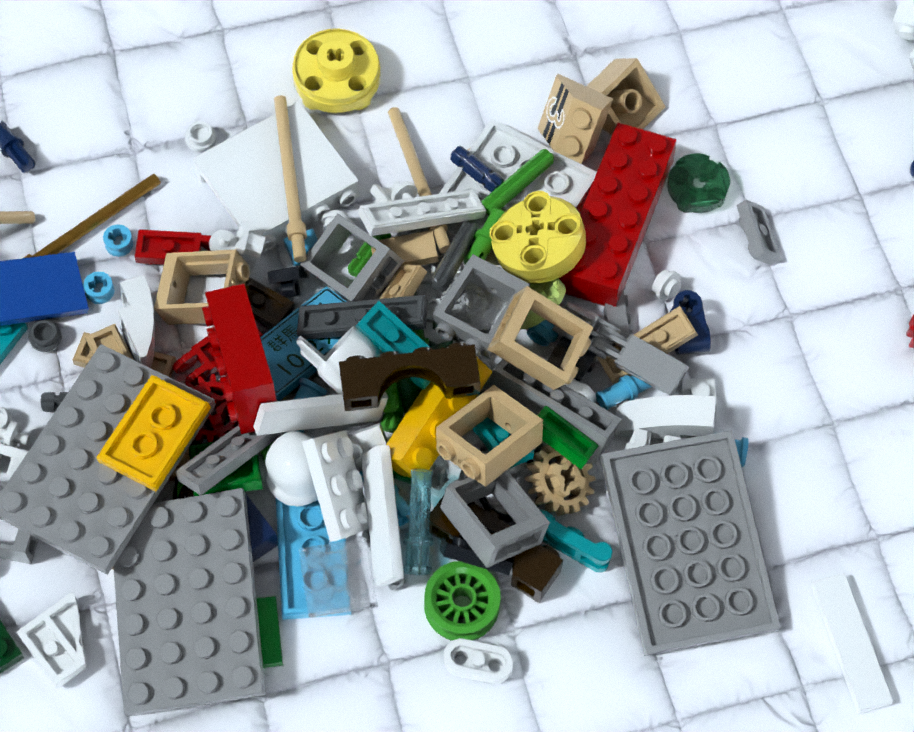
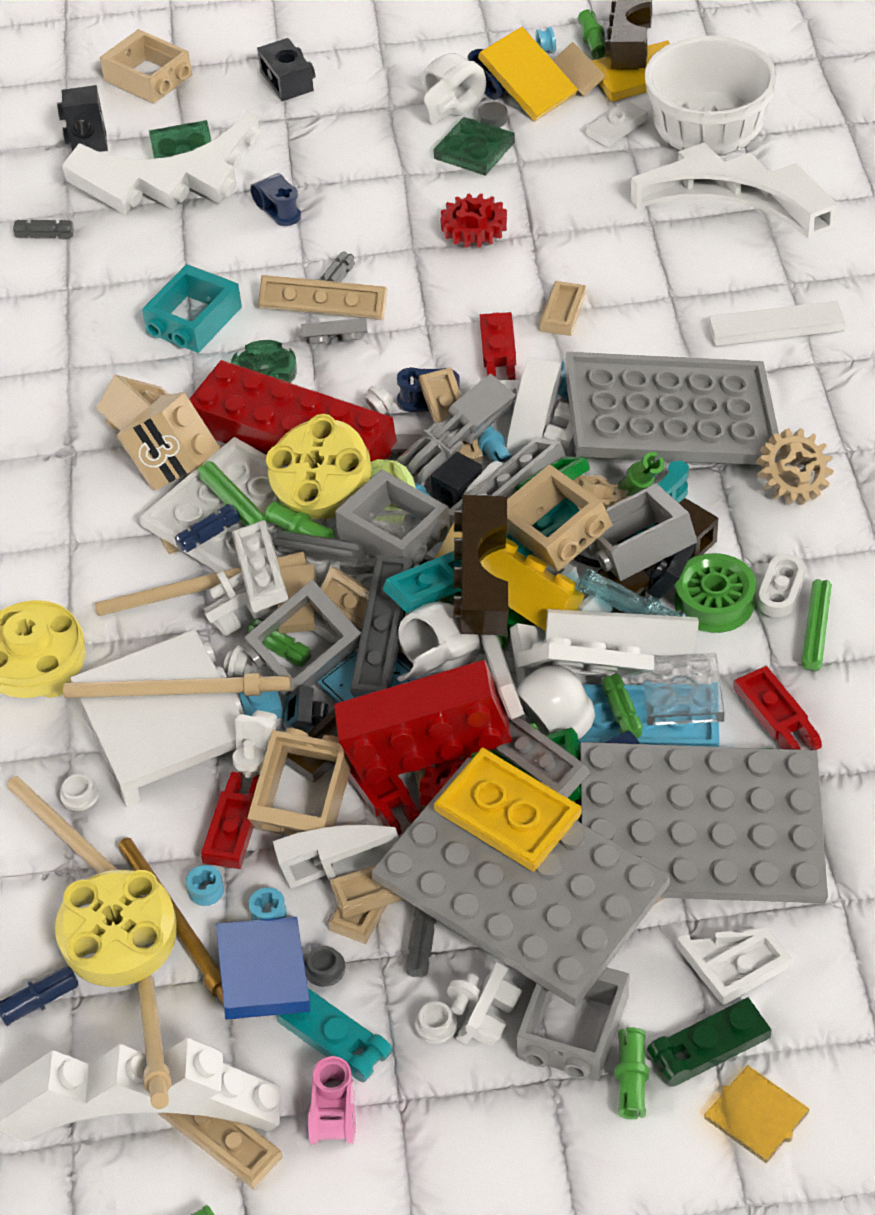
camera: 75 degrees left, 15 degrees down
(59, 182) = (116, 927): none -> light yellow piece
(109, 189) = (60, 826): none -> tan bar
(303, 531) = (621, 705): none -> bright green axle
(326, 663) = (776, 709): none -> red hinge
(436, 696) = (816, 625): none -> bright green axle
(505, 347) = (421, 462): tan window -> none
(585, 517) = (641, 474): none -> bright green pin
(635, 674) = (791, 480): none -> tan gear
(753, 128) = (191, 282): none -> teal window
(768, 380) = (498, 343): none -> red hinge
(801, 216) = (322, 297): none -> tan tile
(835, 434) = (563, 308): none -> tan tile
(839, 222) = (339, 268): none -> axle

